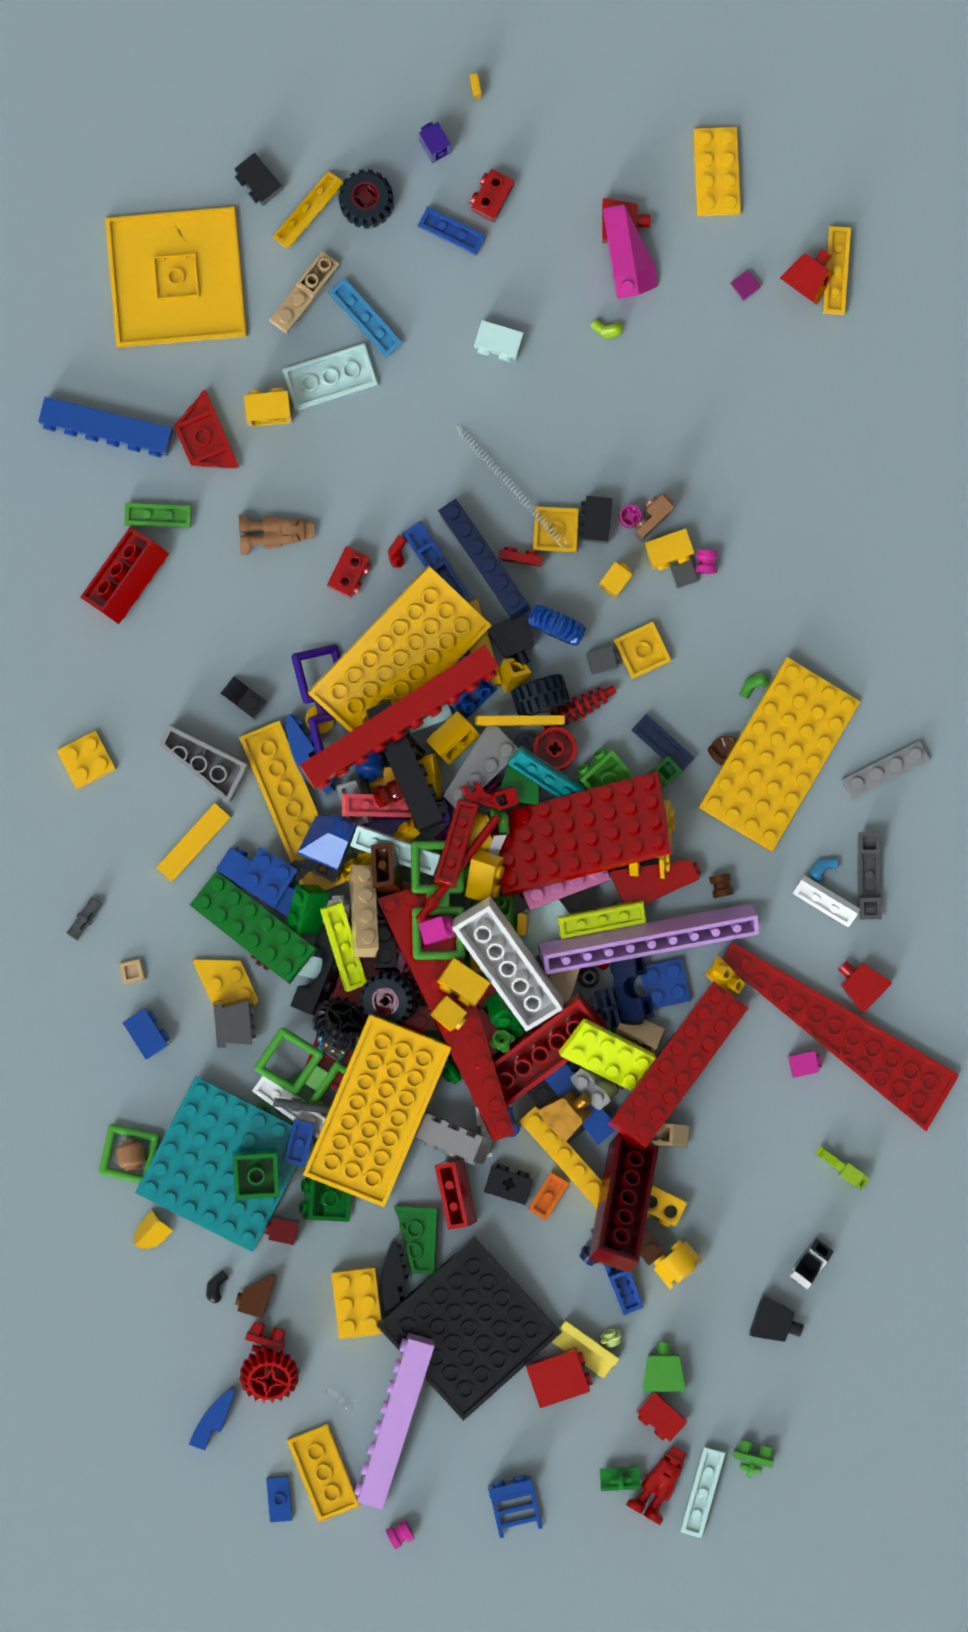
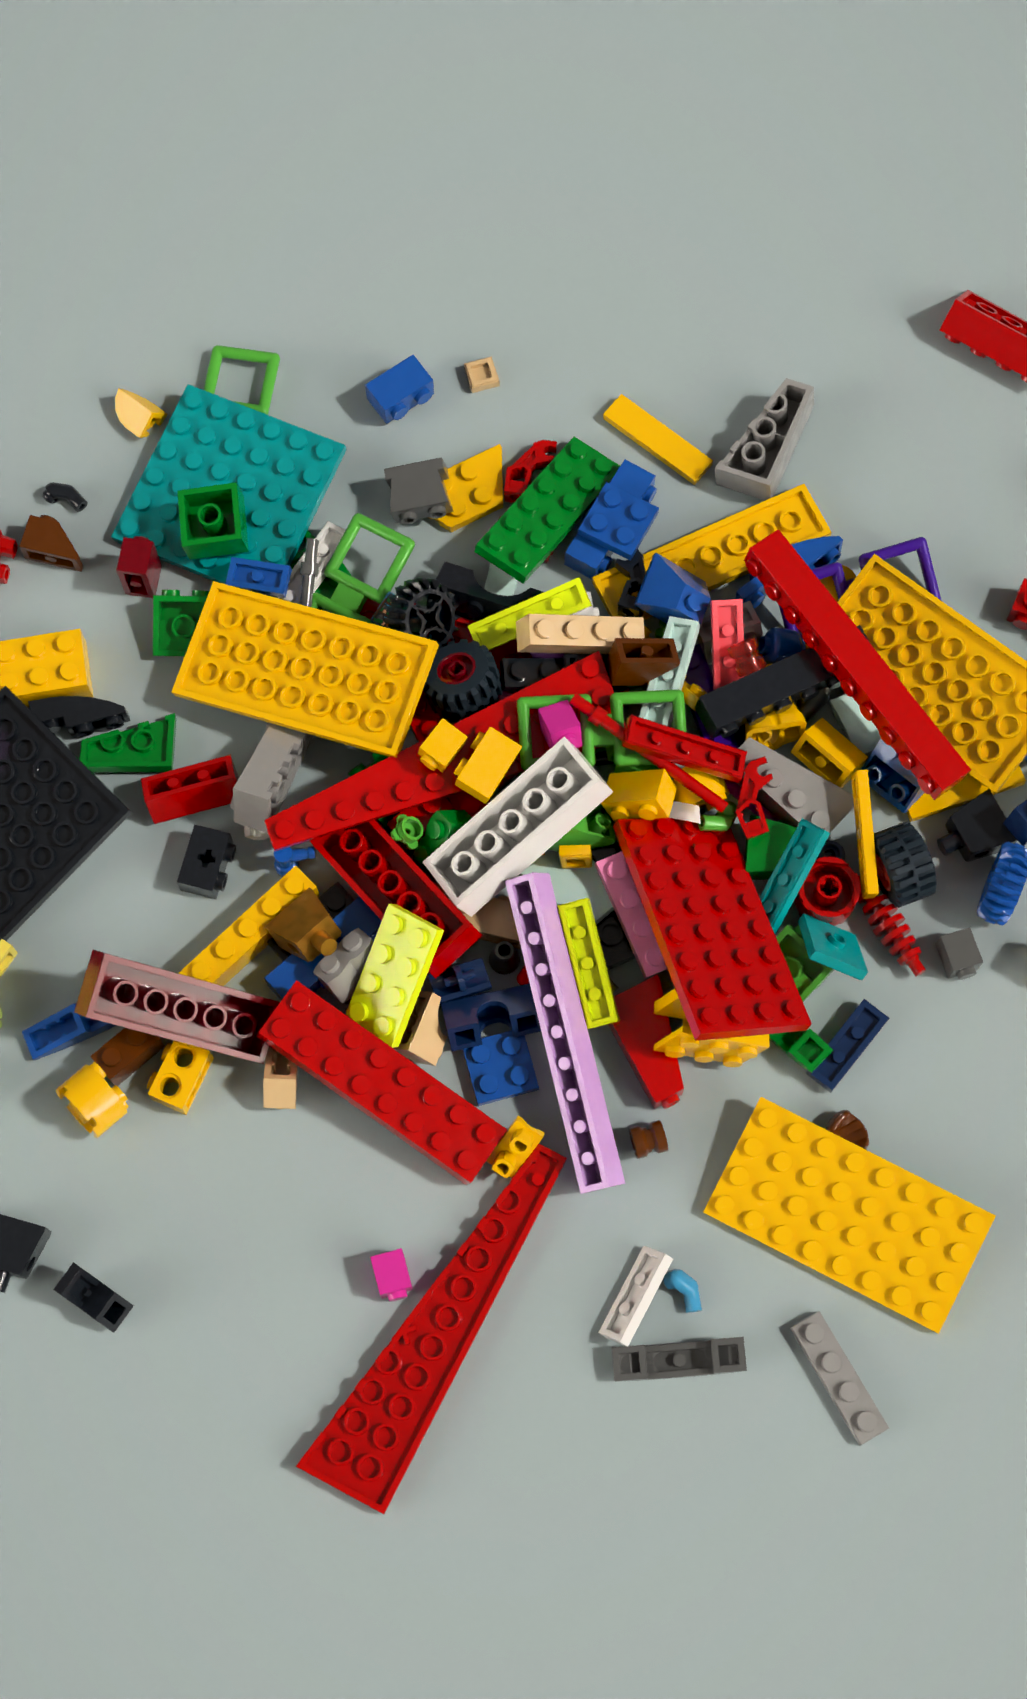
camera: 90 degrees right, 15 degrees down
(84, 918) = (563, 322): dark grey pin -> none
(86, 759) = (756, 307): yellow plate -> none
(131, 1155) = (238, 380): medium nougat head -> none
(206, 937) = (530, 461): none -> red piece
(244, 698) = (854, 492): black slope -> none
(305, 909) = (589, 565): green brick -> none
(513, 674) = (933, 829): yellow brick -> none
(548, 1196) = (190, 917): orange plate -> none
(596, 749) = (832, 947): none -> teal plate
(642, 650) = (979, 1010): yellow plate -> none
(752, 682) = (954, 1178): bright green arm -> none
(846, 1170) = (232, 1348): lime piece -> none
(863, 984) = (513, 1357): red torso -> none

